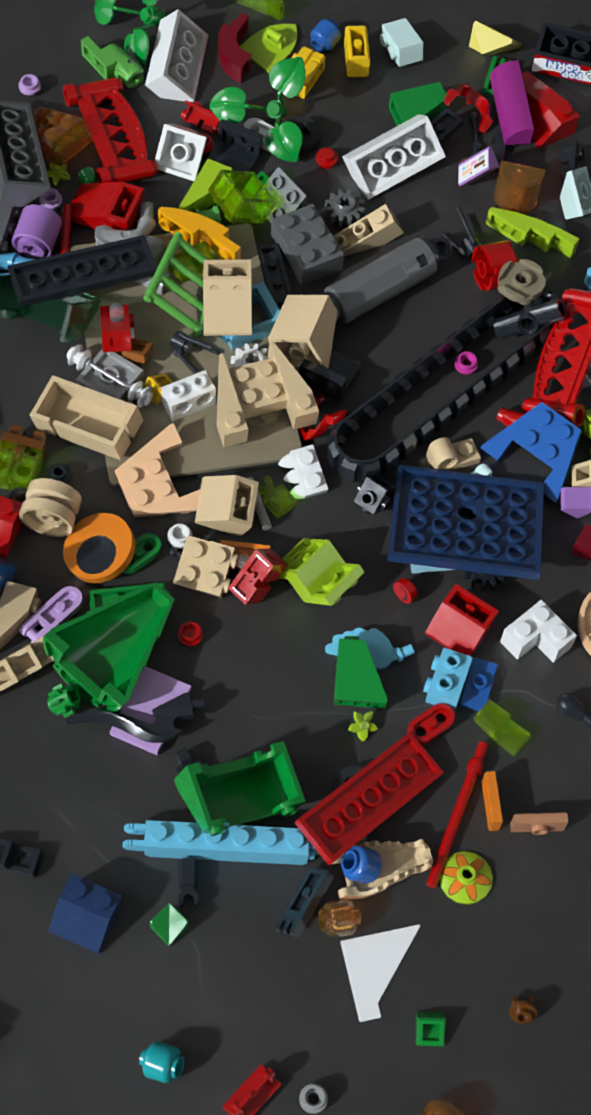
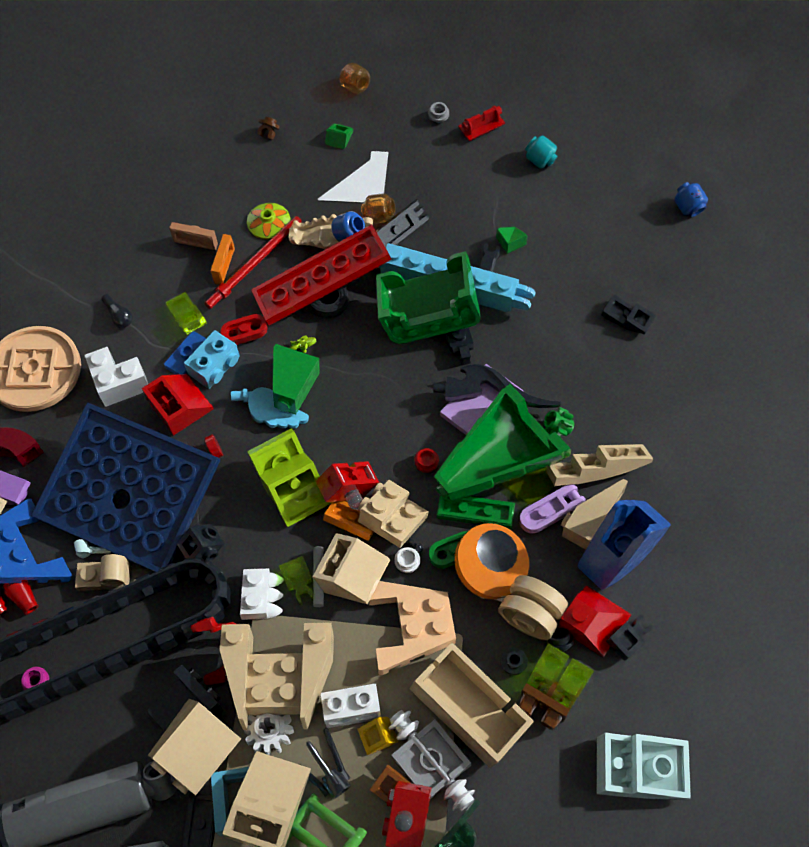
camera: 155 degrees left, 0 degrees up
(85, 913) = (573, 260): dark blue slope -> none

